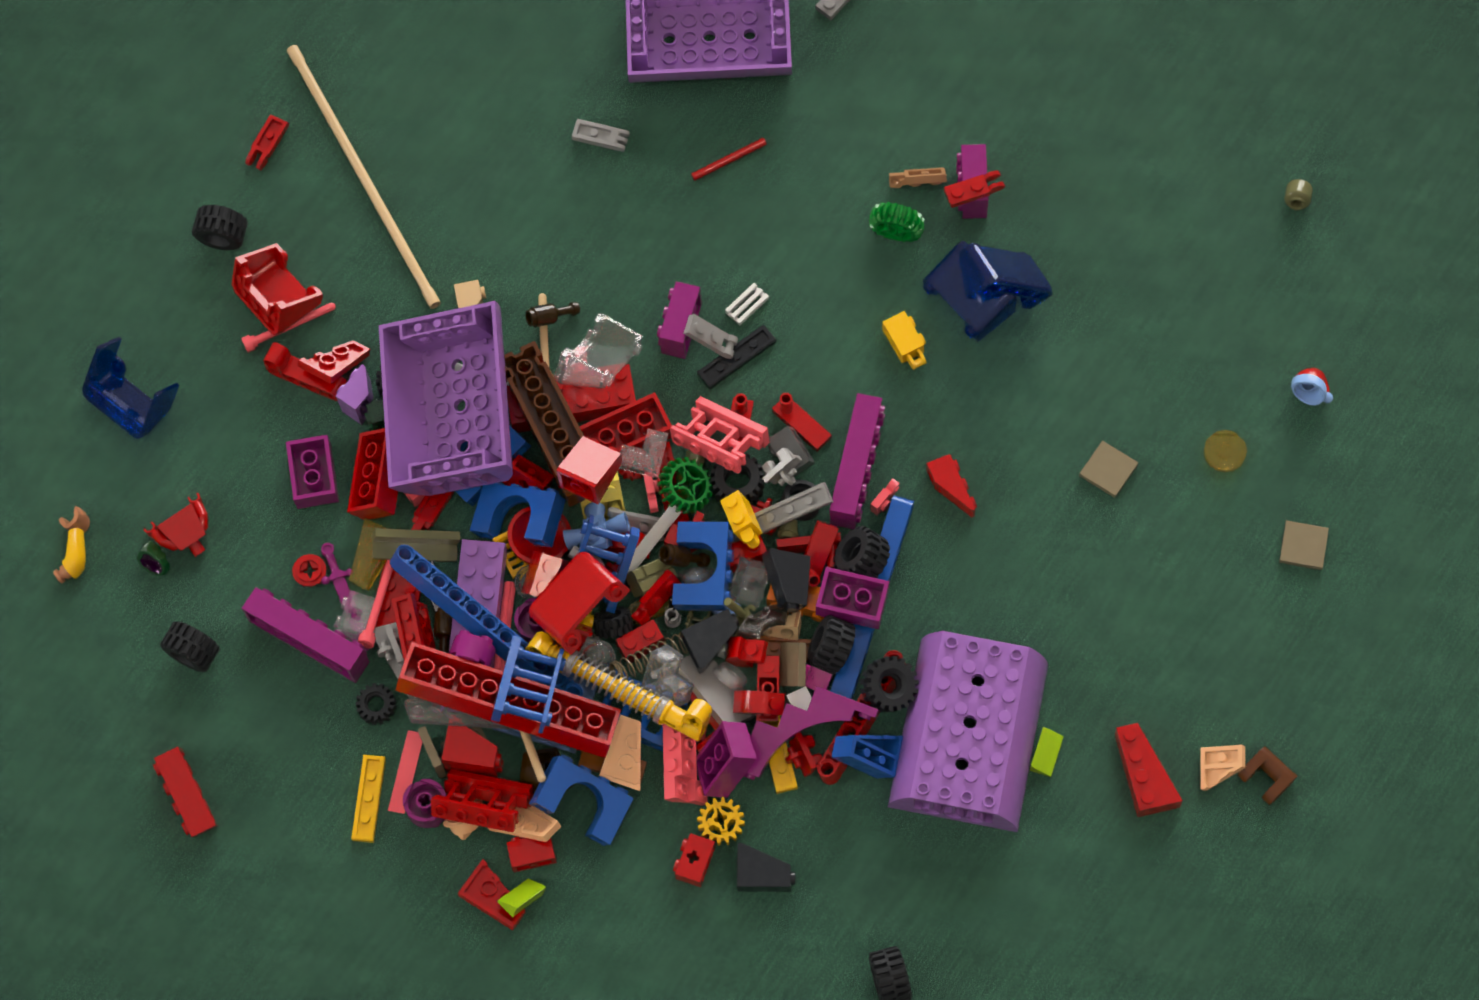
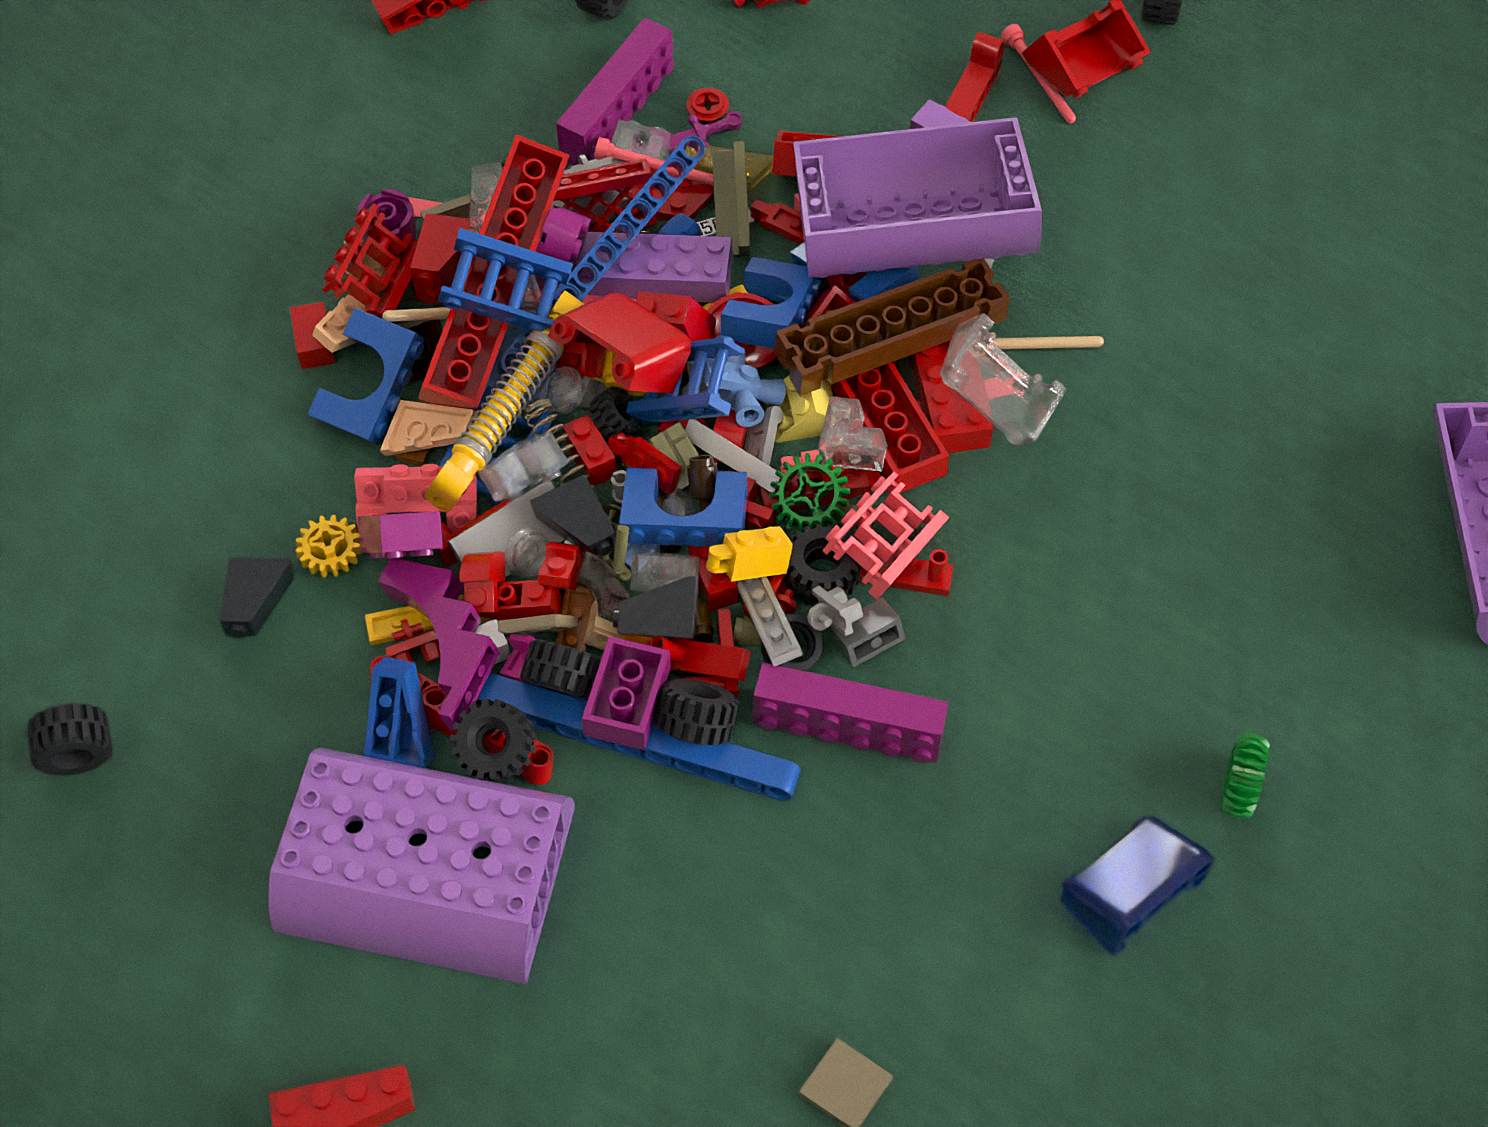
camera: 85 degrees right, 10 degrees down
(267, 141) = (1296, 43): red hinge -> none
(312, 471) = (836, 96): magenta brick -> none
(335, 363) = (977, 99): red wing -> none
(368, 798) = (407, 173): yellow tile -> none
(427, 291) = (1098, 214): tan piece -> none
(469, 293) = (1081, 256): tan slope -> none
(483, 892) = (261, 296): red wing -> none
(522, 896) = (253, 322): lime slope -> none
(548, 313) = (1066, 339): dark brown piece -> none
(589, 469) = (809, 344): slope -> none
(600, 135) = (1352, 402): light grey hinge -> none
(684, 301) = (1065, 491): magenta brick -> none
(695, 872) = (277, 514): red brick -> none
(710, 336) = (1038, 522): light grey plate -> none
(728, 159) = (1334, 564): red bar -> none
(743, 353) = (1019, 573): black tile -> none
(758, 292) = (1106, 582): white tile -> none
(801, 421) = (919, 651): red piece -> none
(882, 500) = (789, 749): coral plate -> none
(904, 339) = (1053, 790): yellow brick -> none
(916, 177) = (1331, 816): medium nougat hinge -> none
(947, 481) = (823, 844): red slope -> none
(969, 164) = (1327, 887): magenta brick -> none
(973, 189) = (1301, 869): red hinge -> none
(1003, 272) = (1159, 916): clear blue windscreen -> none
(1046, 752) = (388, 972): lime slope -> none

